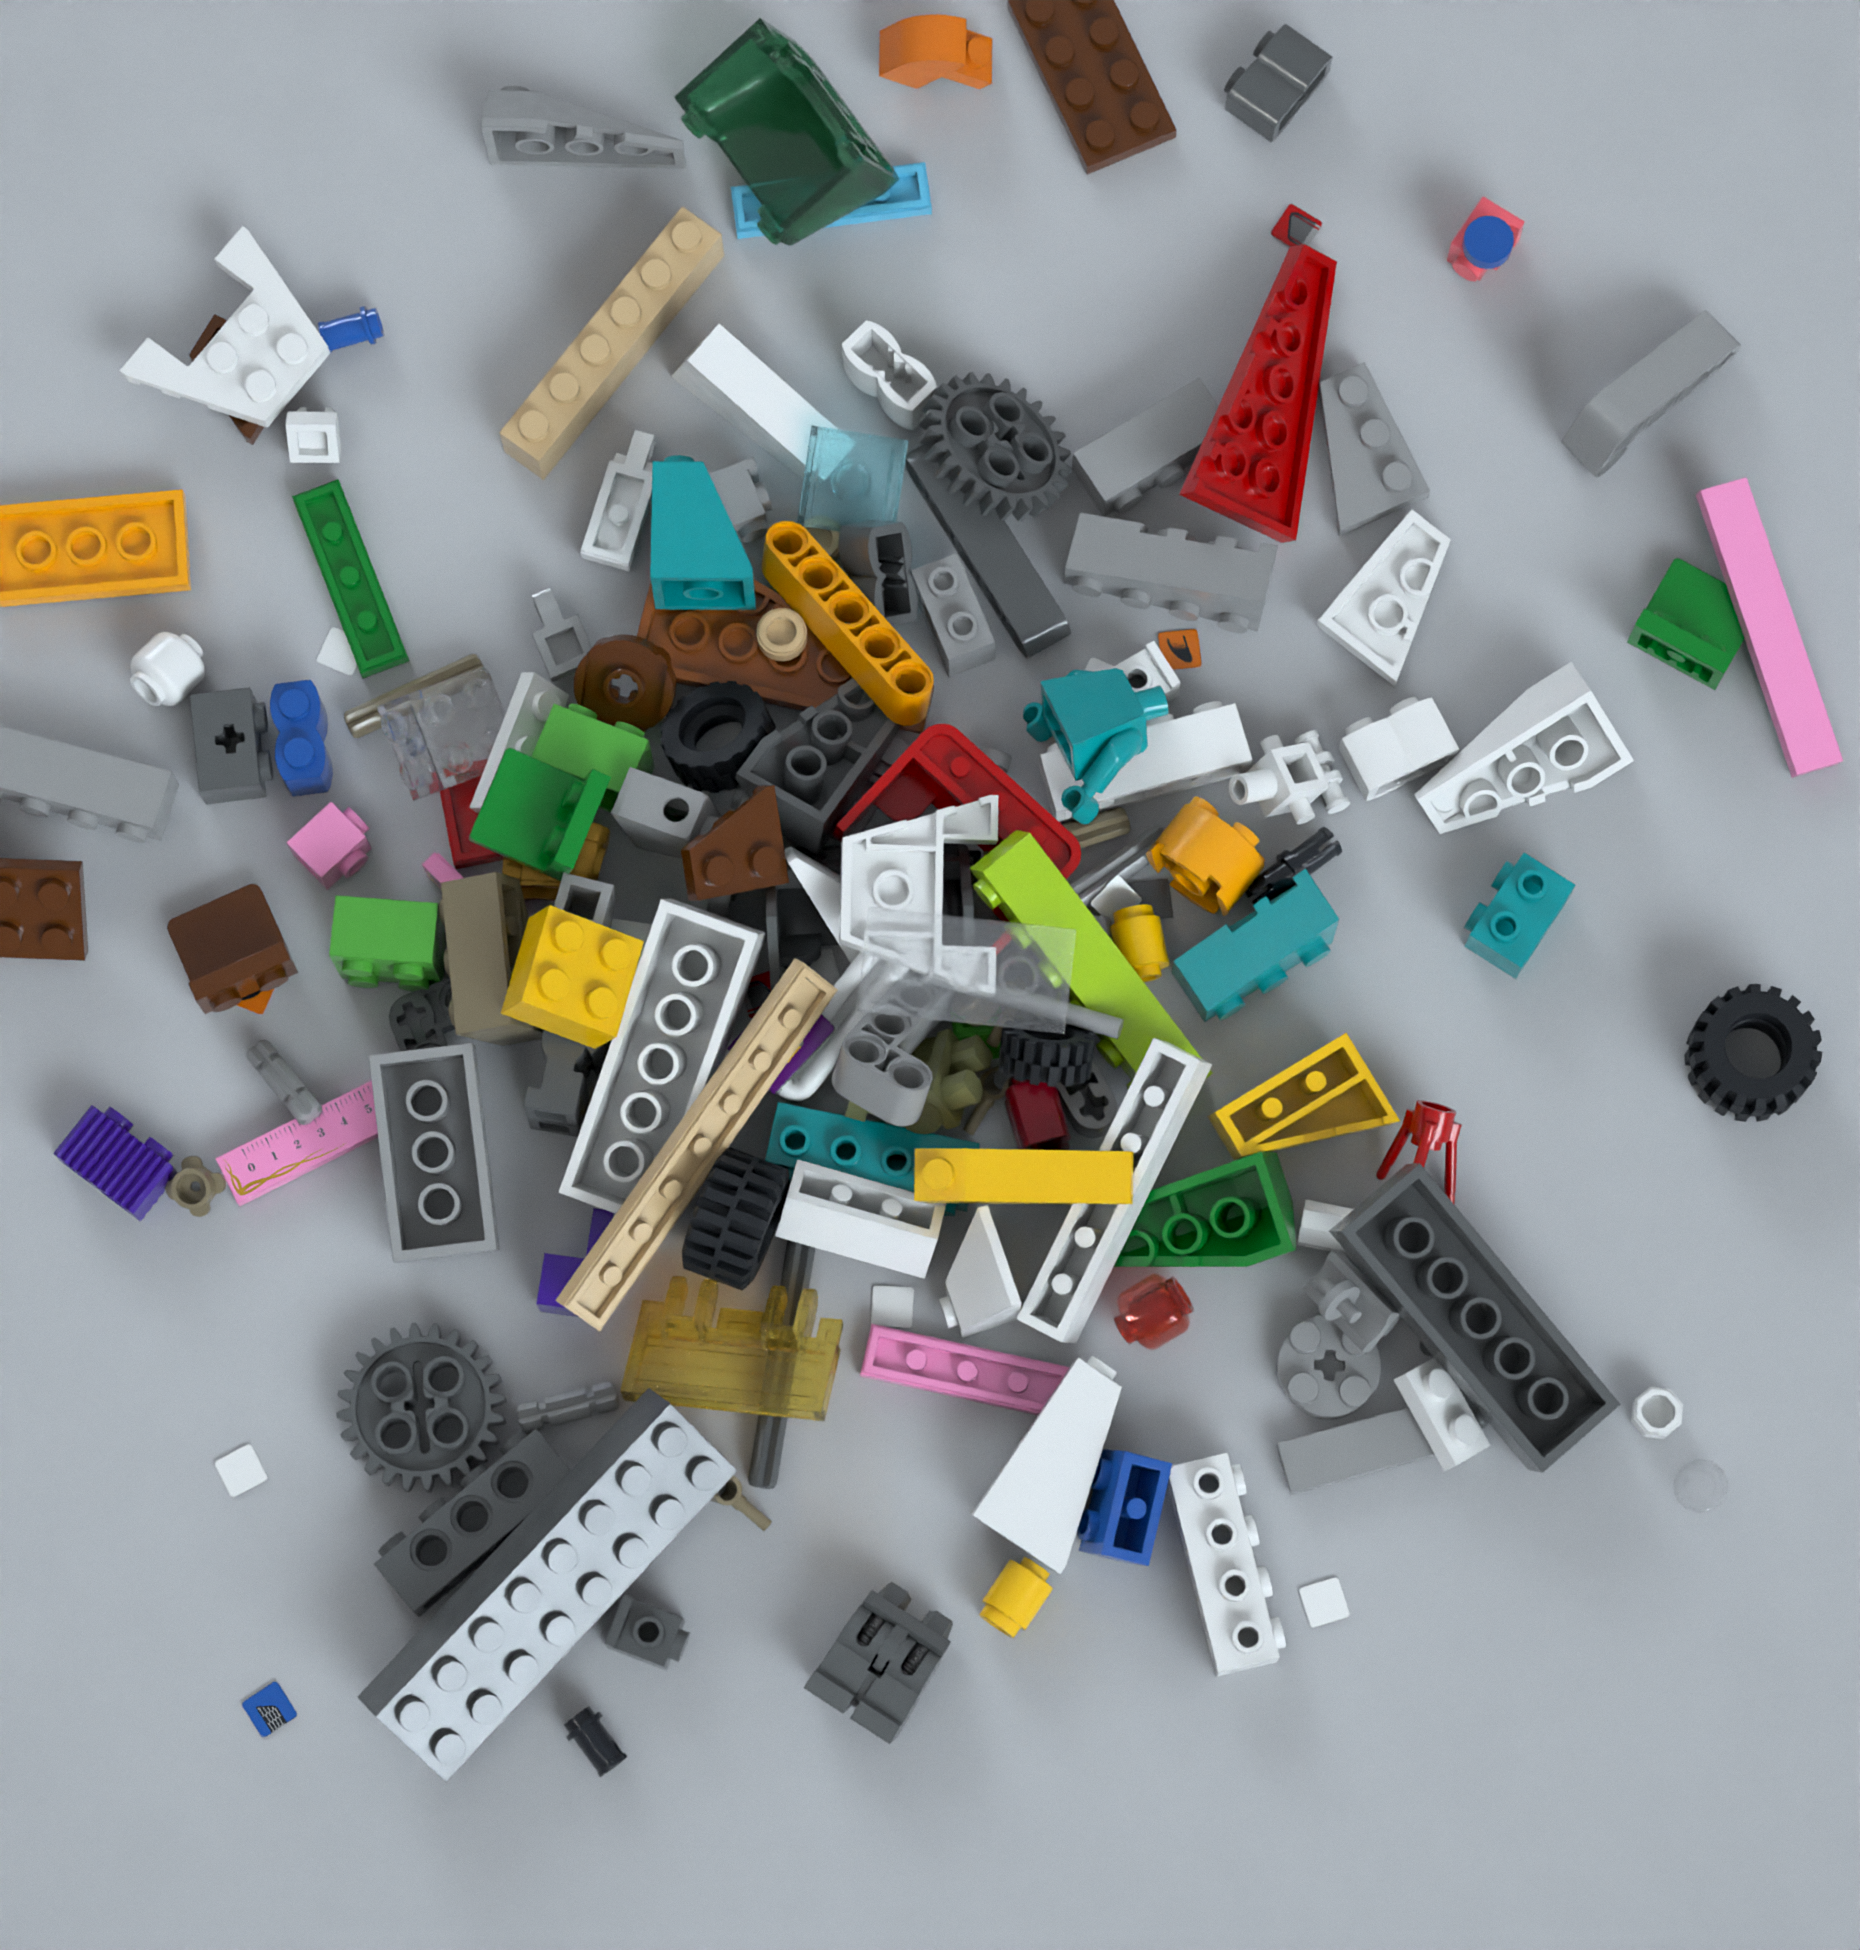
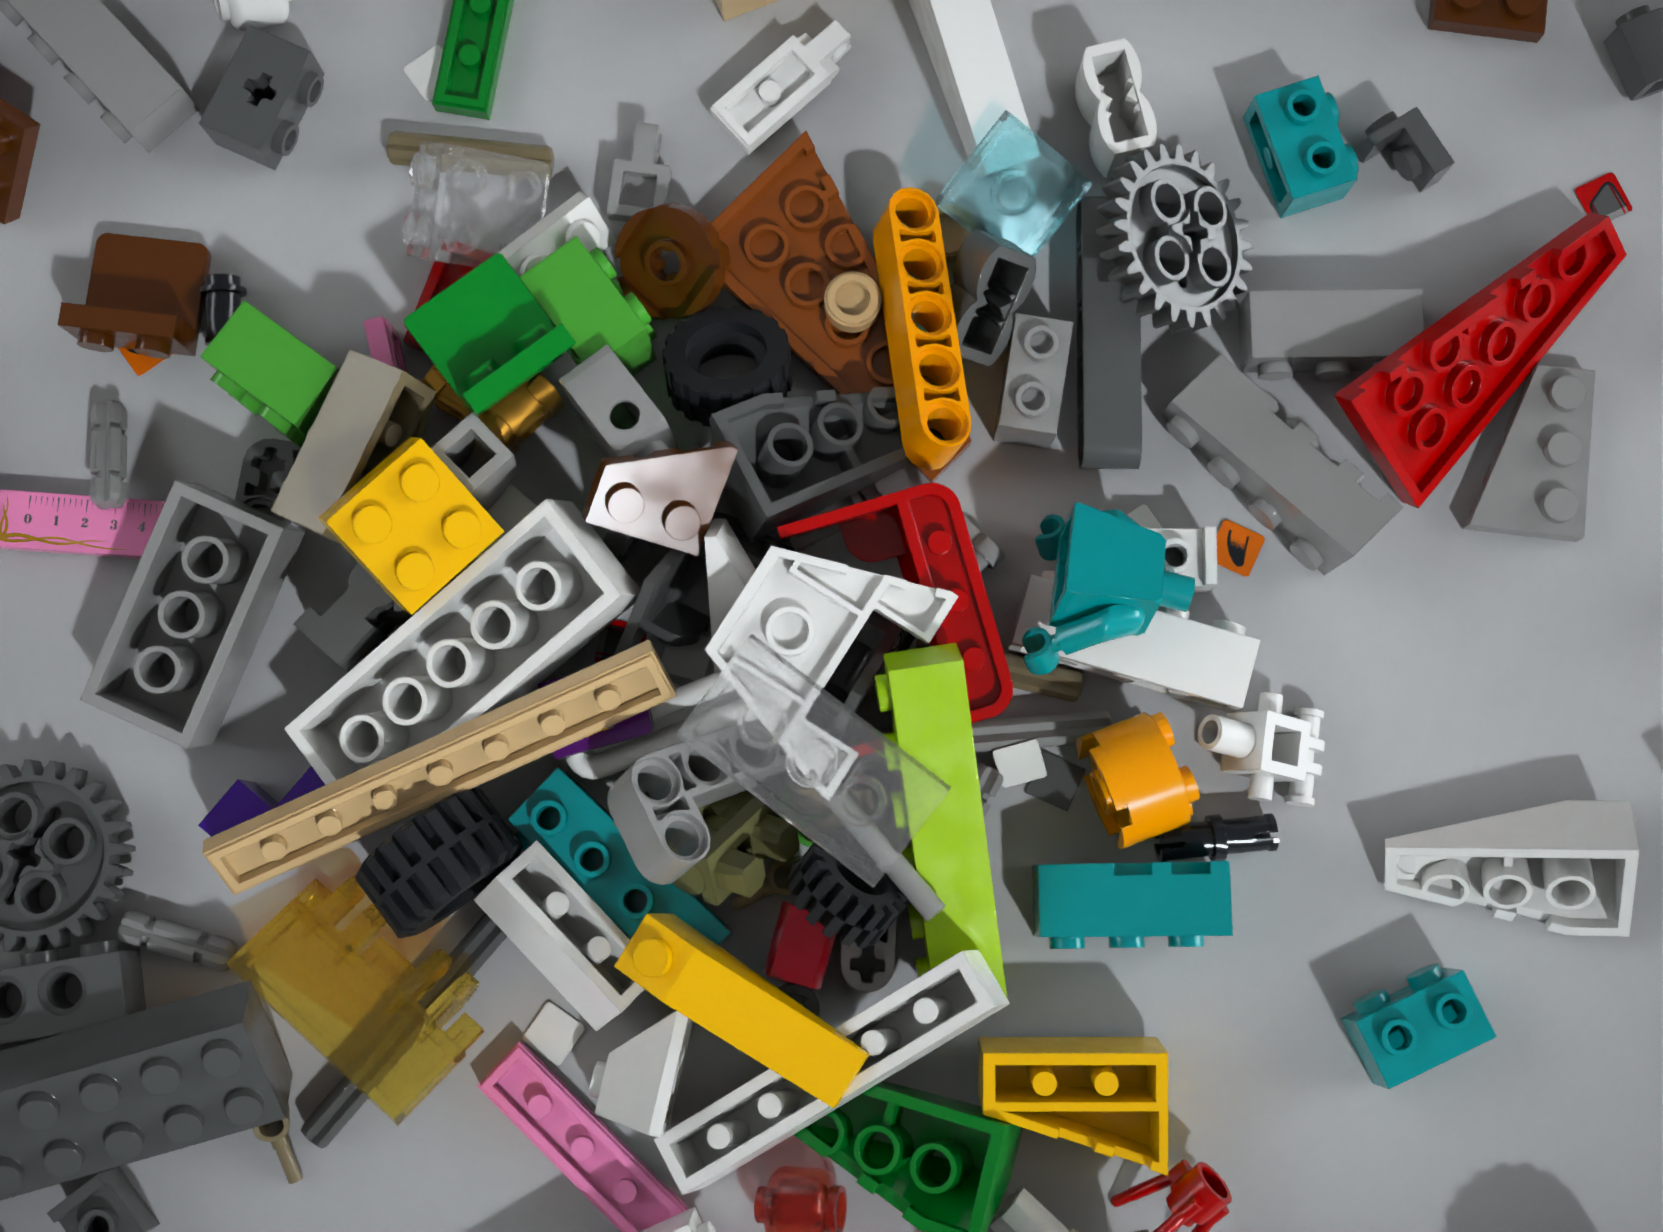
camera: 30 degrees right, 5 degrees up
(300, 743) = (338, 123): blue brick -> none
(300, 924) = (223, 298): none -> black pin
(331, 845) = (297, 251): bright pink brick -> none
(694, 543) = (812, 155): teal slope -> none
(743, 499) = (896, 146): light grey brick -> none
(1046, 321) = (1301, 146): none -> teal brick
(1132, 273) = (1414, 145): none -> dark grey bracket
(1141, 940) = (1017, 821): yellow brick -> none
(1388, 596) = (1474, 622): white wing -> none
(1398, 747) = (1397, 779): white brick -> none

